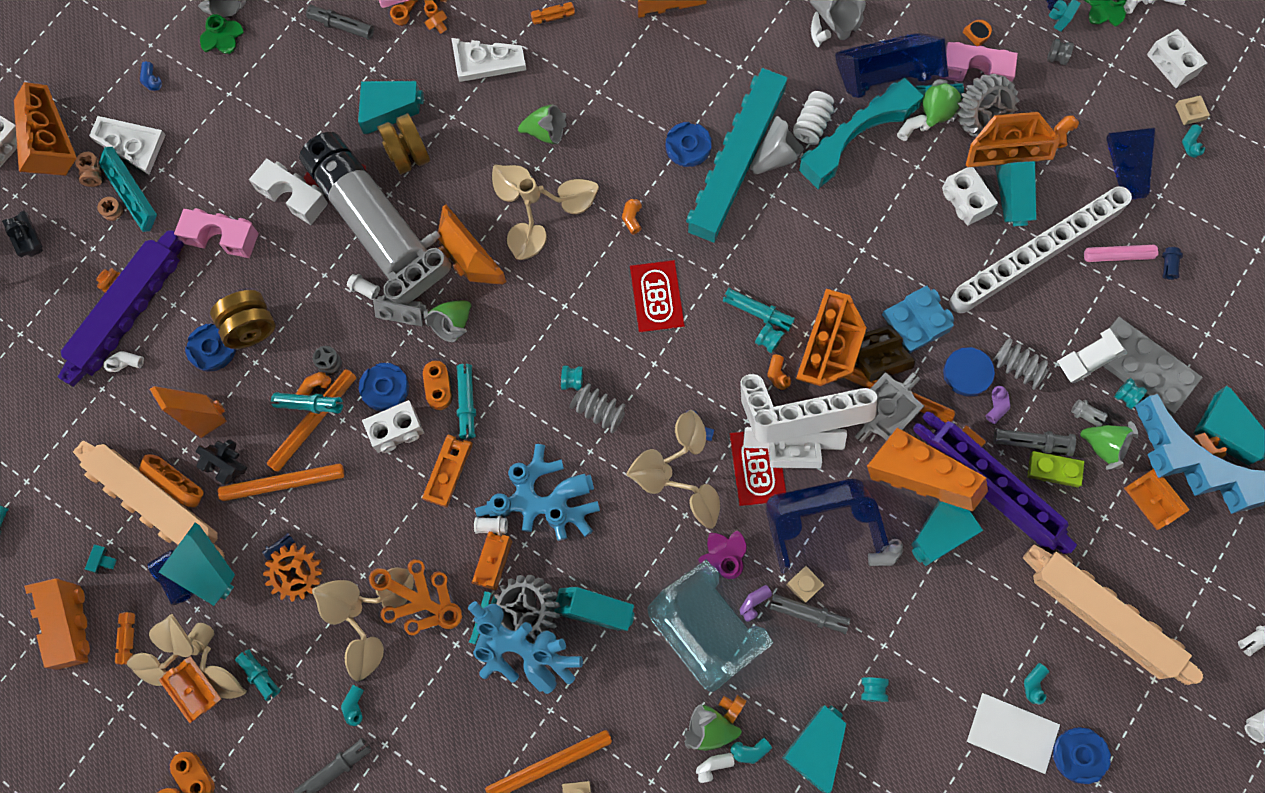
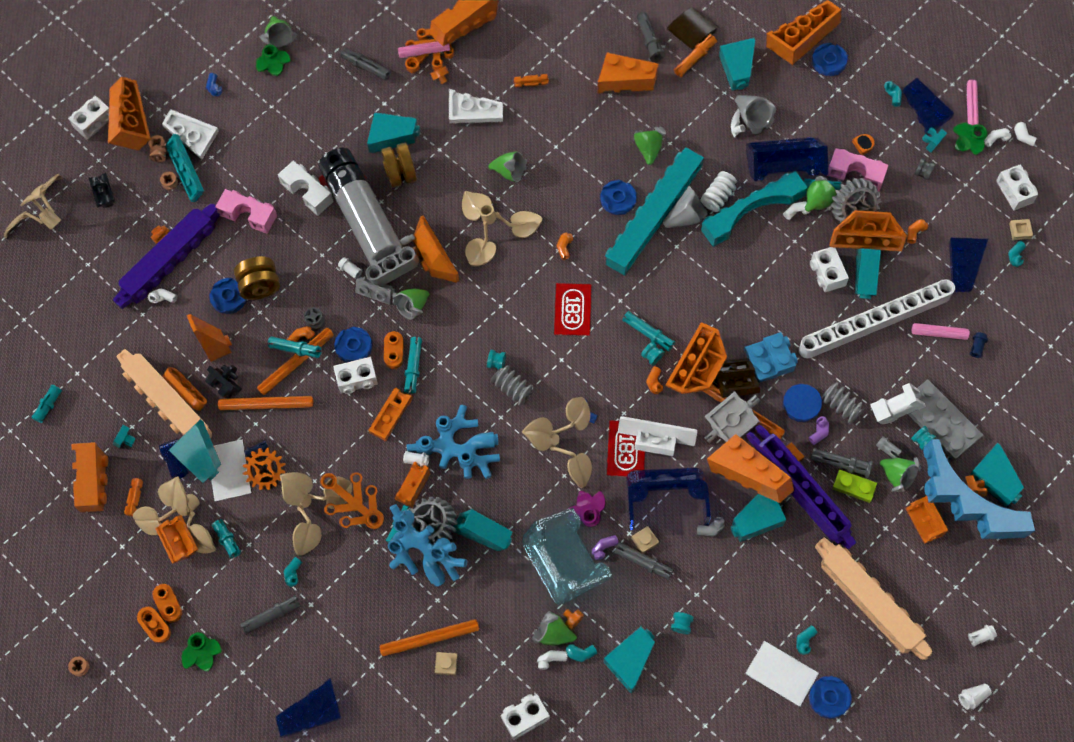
camera: 10 degrees right, 5 degrees down
(250, 594) = (230, 479): none -> white sticker
(715, 69) = (649, 143): none -> bright green hat
(803, 417) = (667, 414): white beam -> none

